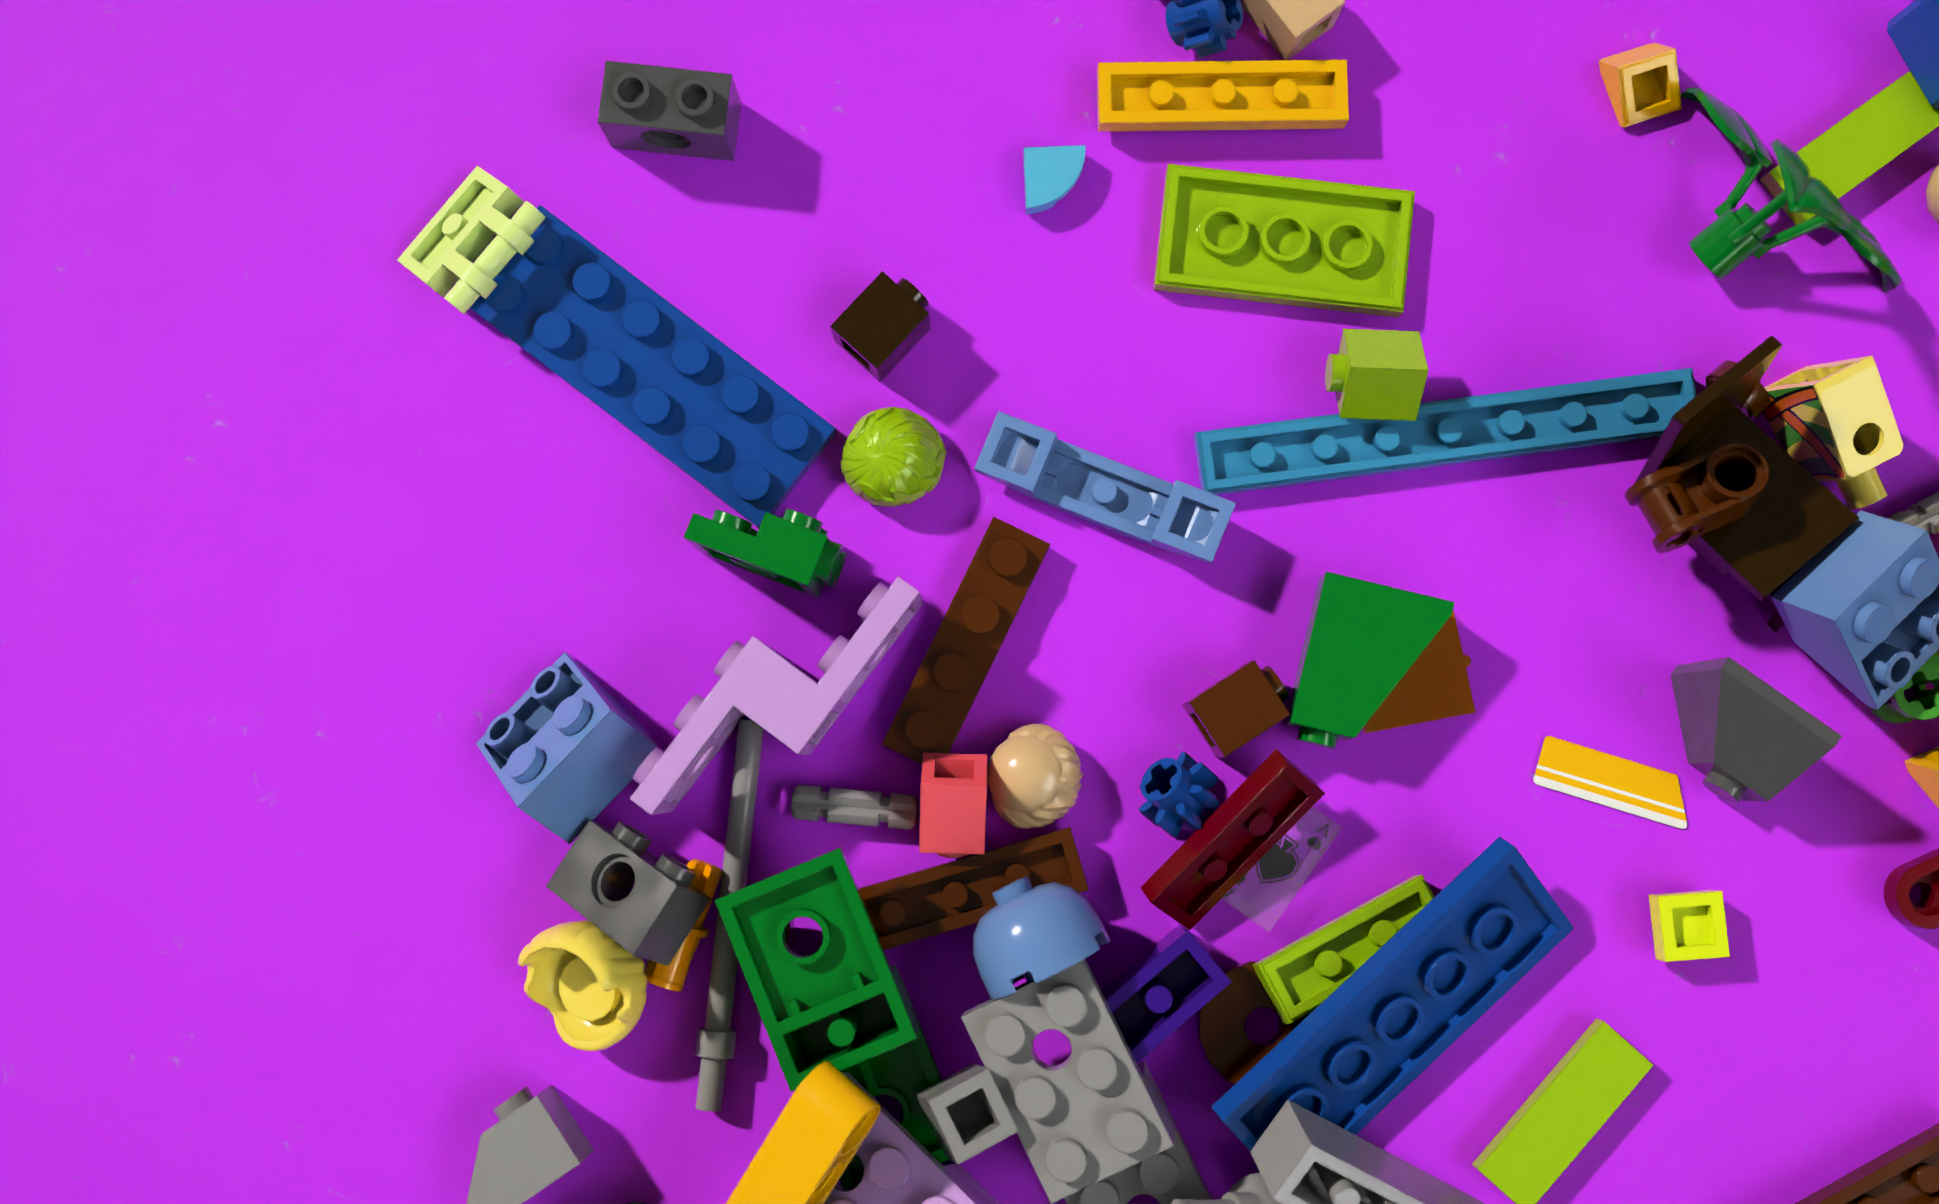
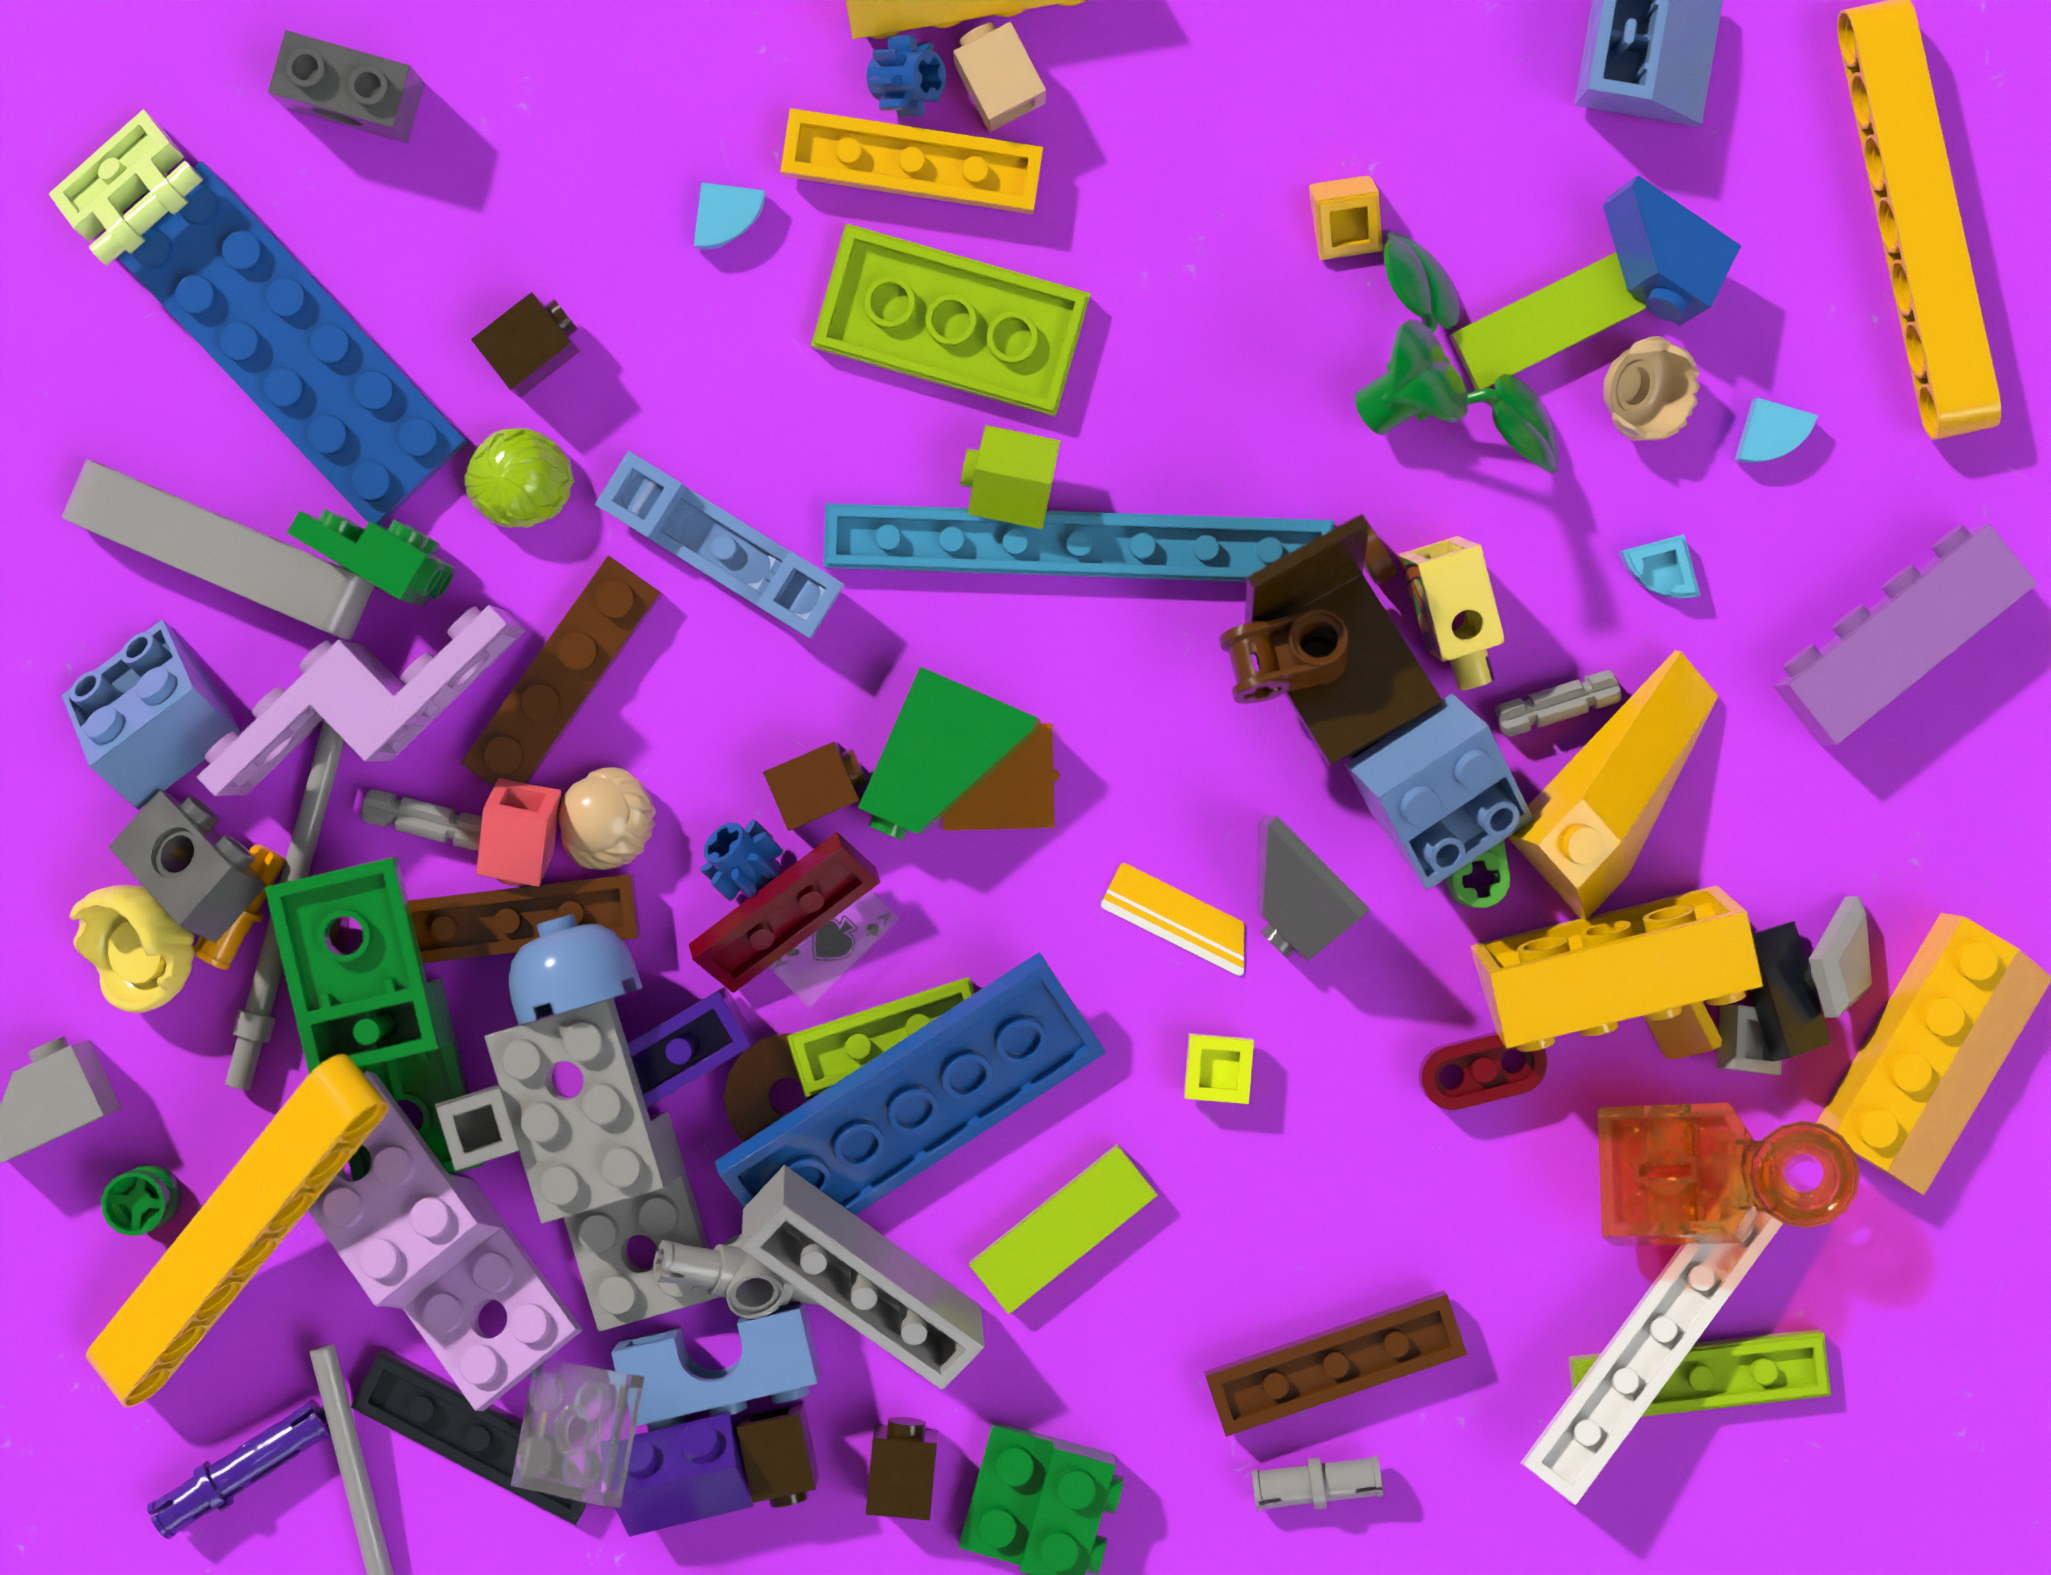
camera: 10 degrees right, 5 degrees up
(611, 573) = (218, 549): none -> light grey beam

